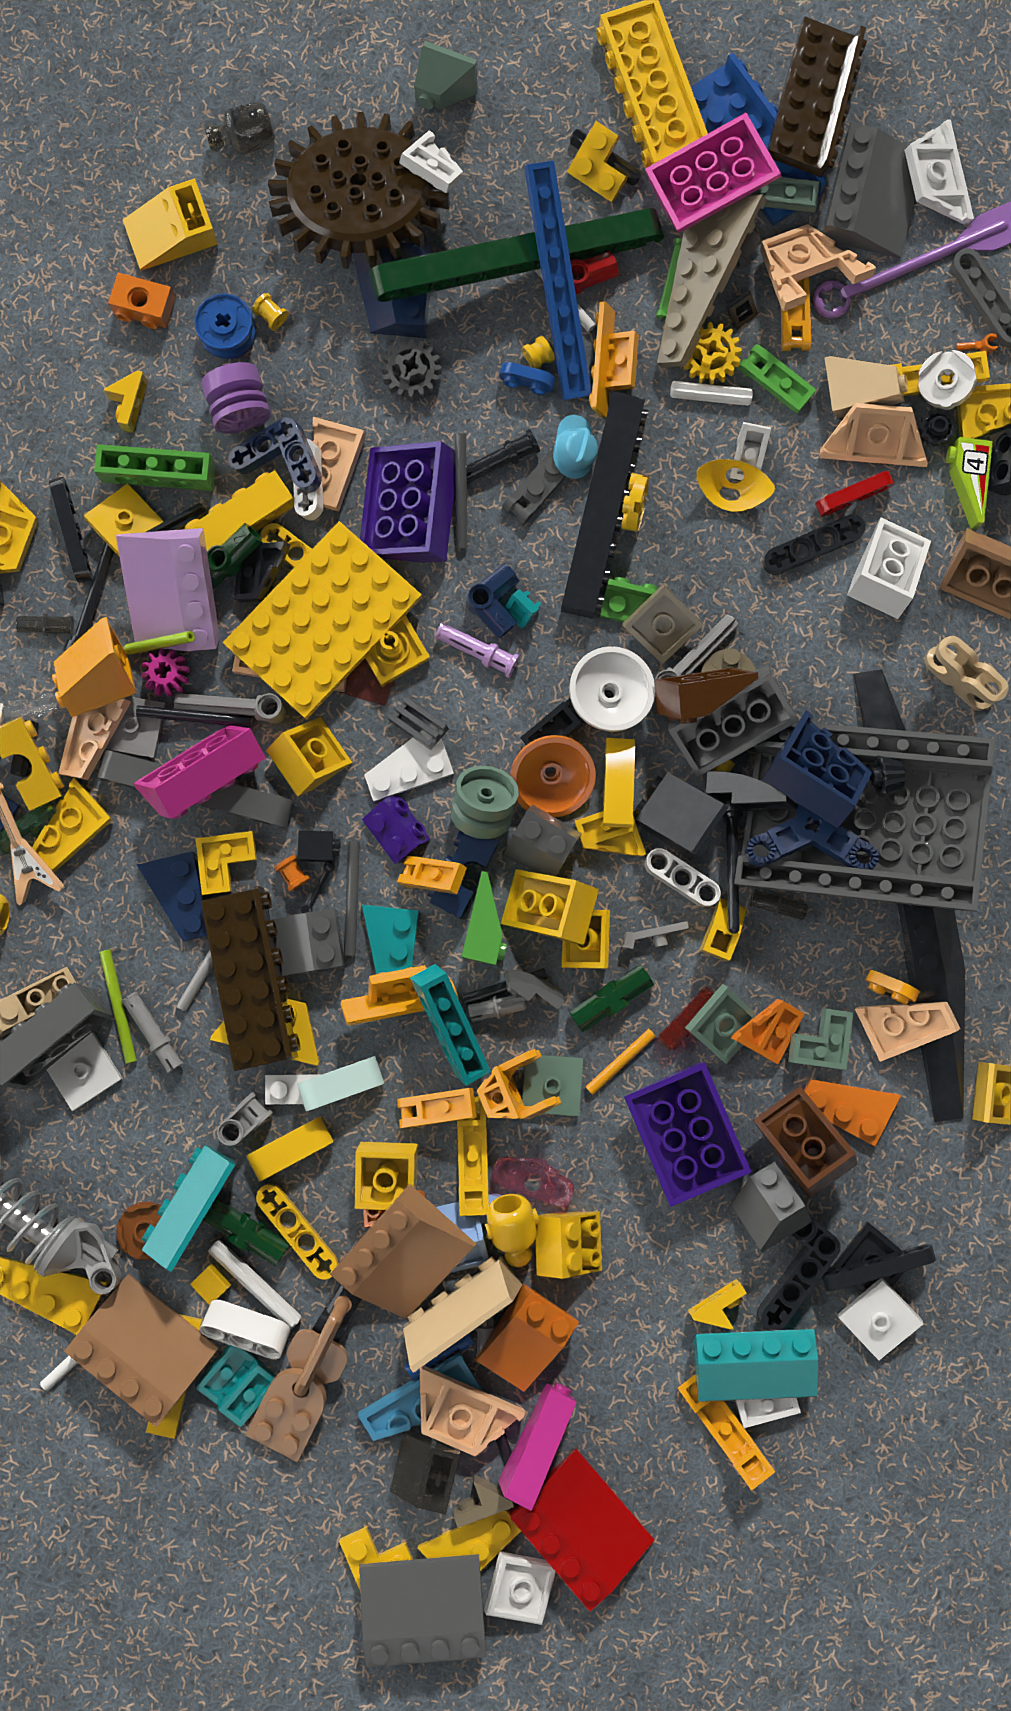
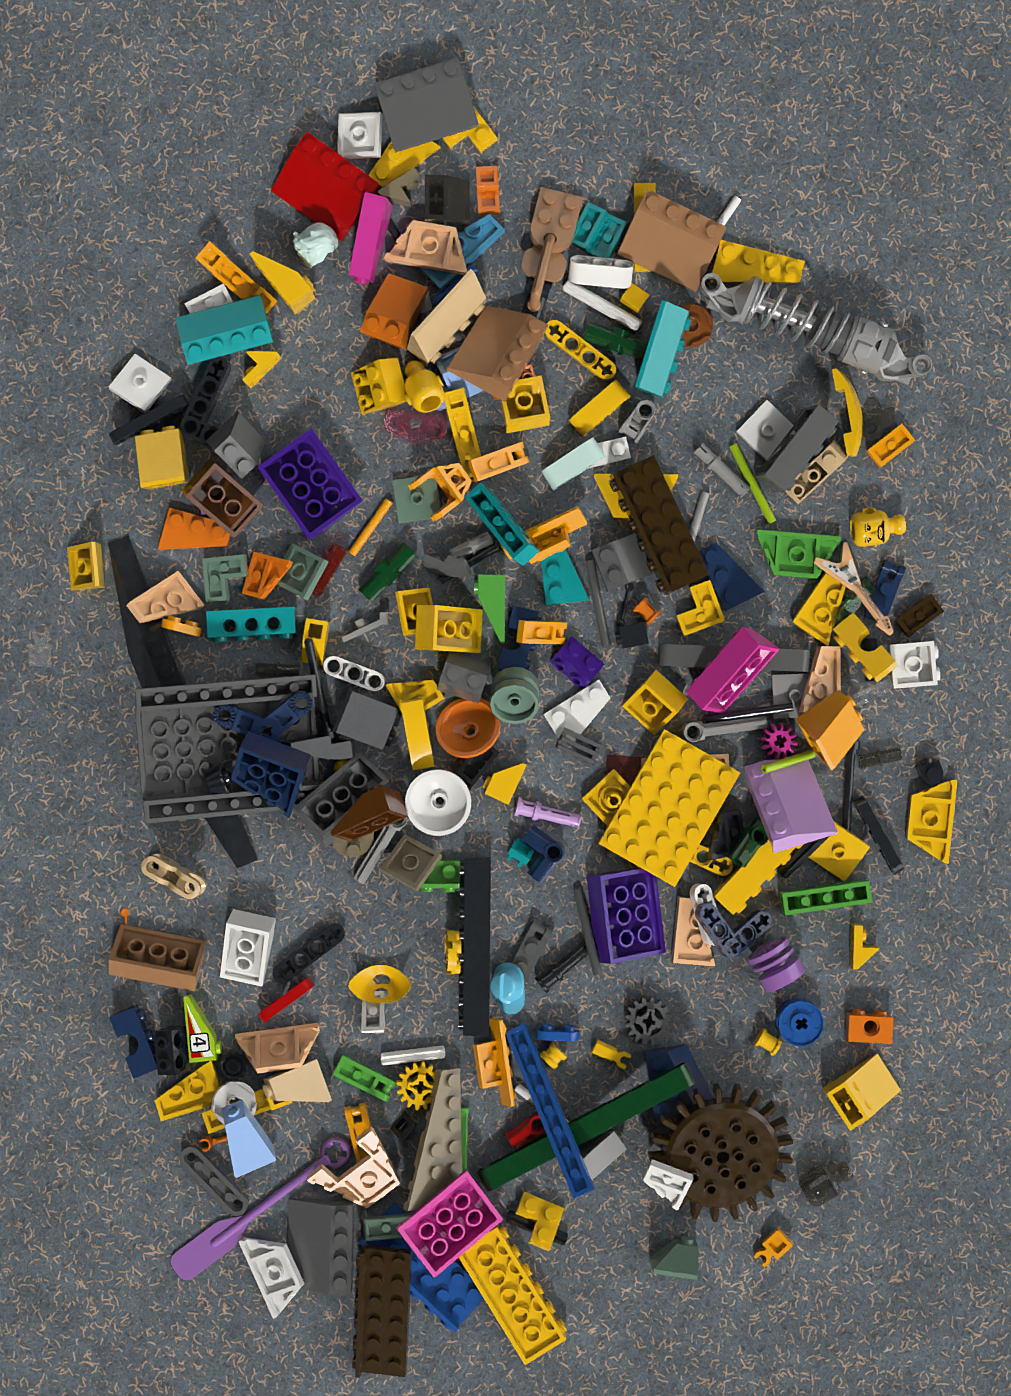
camera: 165 degrees right, 5 degrees up
(84, 904) = (794, 553): none -> bright green wing
(321, 73) = (775, 1245): none -> light orange plate
(368, 1473) = (487, 190): none -> orange slope
(467, 341) = (609, 1053): none -> yellow bar
(506, 219) = (602, 1152): none -> light grey slope
(522, 698) = (504, 783): none -> yellow slope
(611, 1454) = (315, 243): none -> light aqua hair
(653, 1399) = (289, 284): none -> yellow slope
(842, 986) = (217, 619): none -> teal brick
(873, 1212) = (161, 458): none -> yellow slope
(941, 331) = (246, 1139): none -> light blue slope

